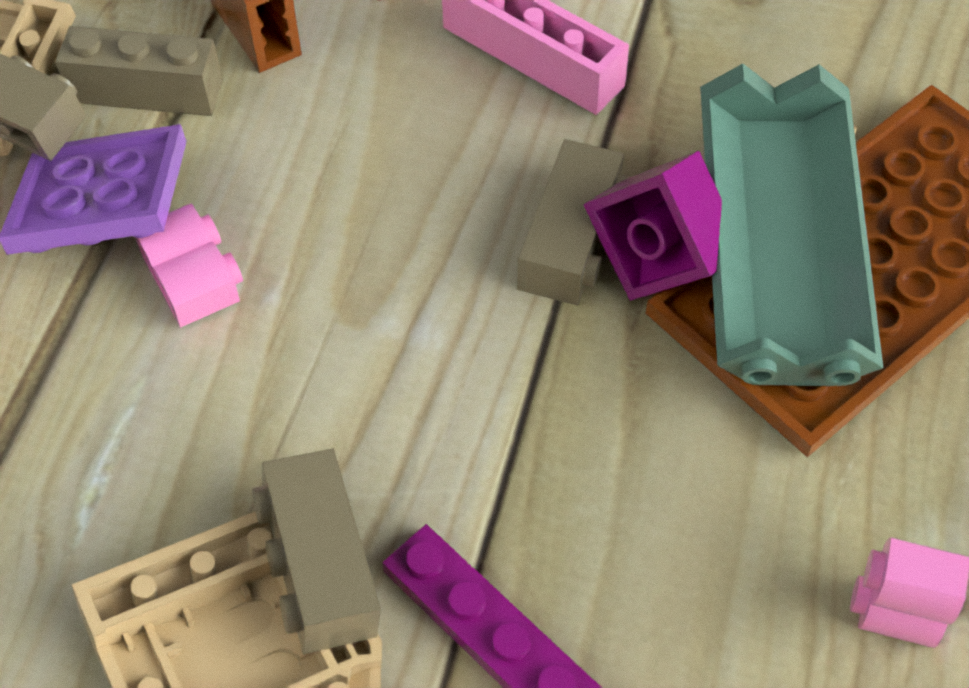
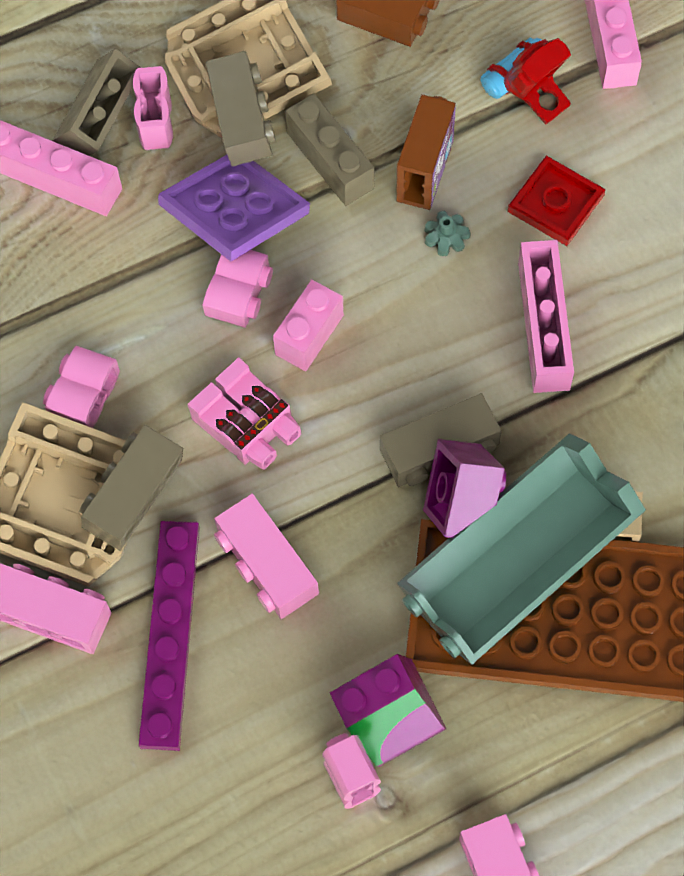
camera: 50 degrees right, 10 degrees up
(120, 509) = (82, 387): none -> bright pink brick
(313, 233) = (308, 325): none -> bright pink brick
(343, 57) = (446, 233): none -> sand green plant
(347, 374) = (244, 415): none -> bright pink hips
(541, 484) = (265, 557): none -> bright pink brick
(854, 493) = (388, 709): none -> magenta slope

